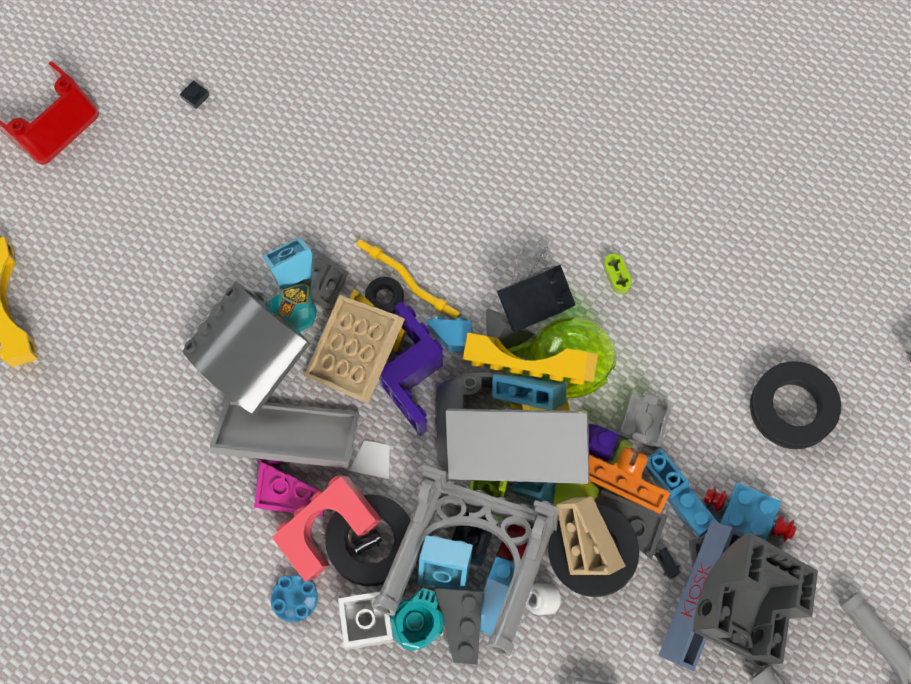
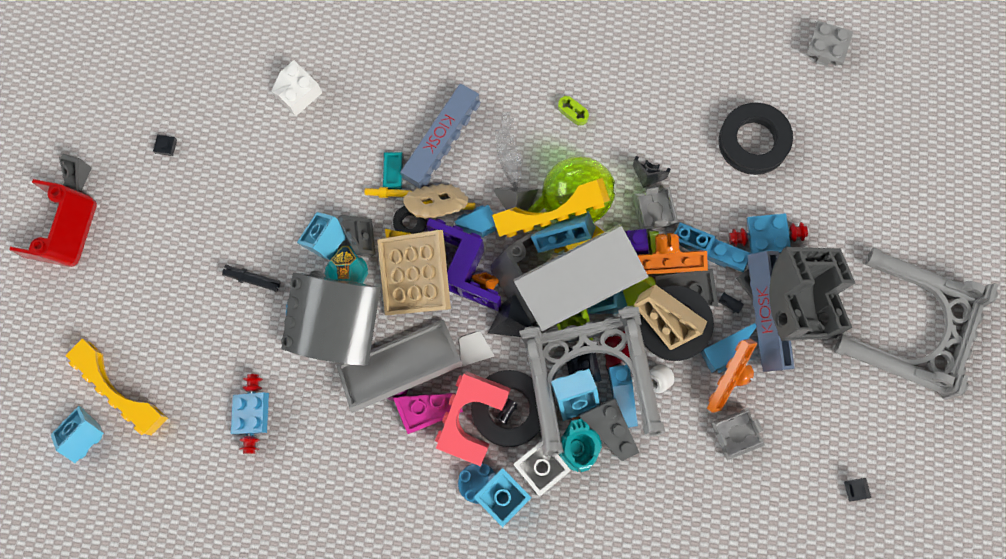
camera: 25 degrees left, 5 degrees up
(95, 76) = (74, 171): none -> dark grey slope
(115, 398) = (250, 413): none -> dark azure plate
(191, 260) = (243, 275): none -> black pin
(308, 627) = (502, 497): none -> medium azure slope
(351, 105) = (295, 88): none -> white slope
(398, 236) = (391, 170): none -> teal tile
(420, 296) = (414, 201): none -> tan piece
(424, 397) = (485, 280): none -> orange slope
(426, 449) = (510, 319): none -> black slope
(466, 227) = (440, 136): none -> sand blue brick
(536, 297) = (527, 160): black slope -> none
(624, 640) = (736, 375): none -> orange plate
(626, 610) = (720, 353): none -> dark azure slope
(659, 379) = (649, 173): none -> black slope

